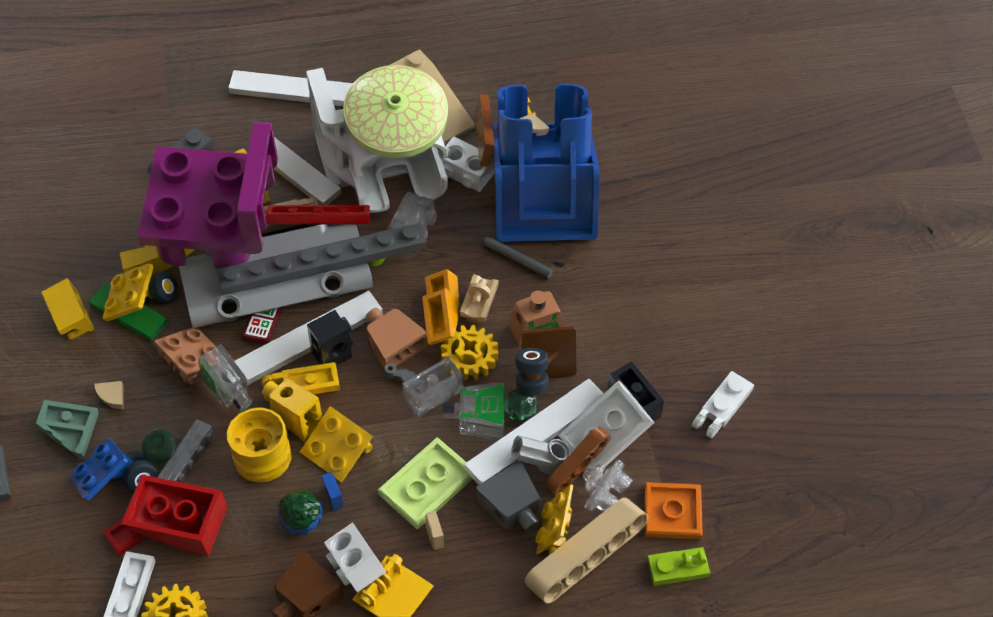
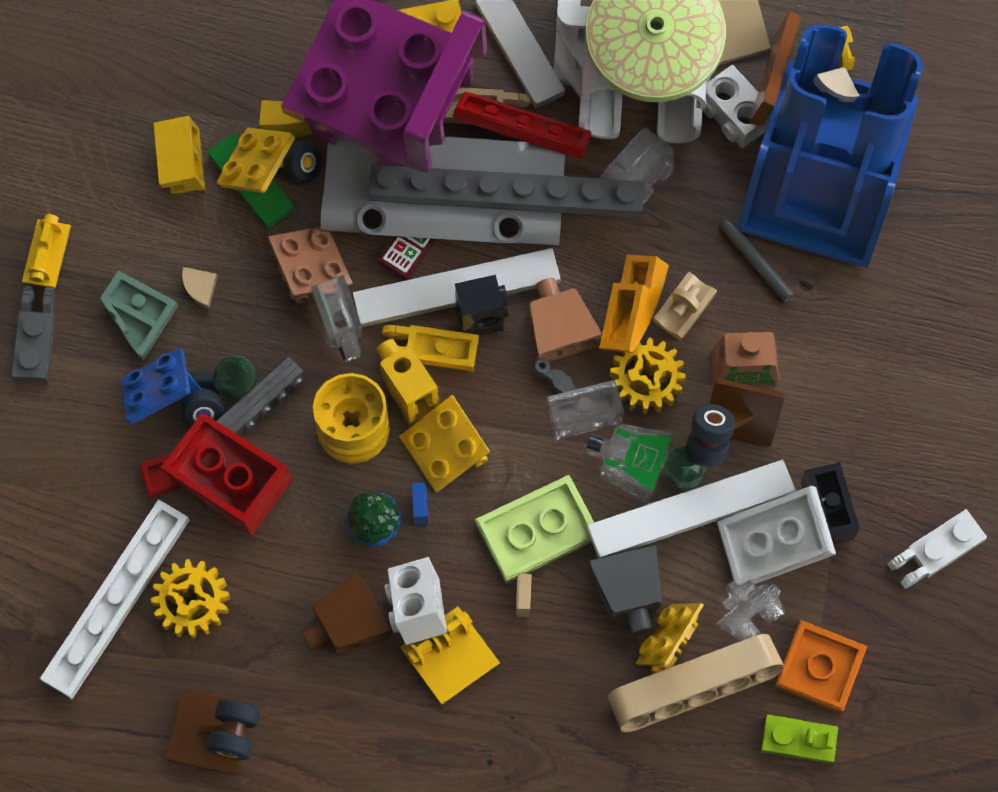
camera: 20 degrees right, 15 degrees up
(543, 454) = (684, 542): light grey piece -> none
(578, 460) = (726, 568): dark orange beam -> none

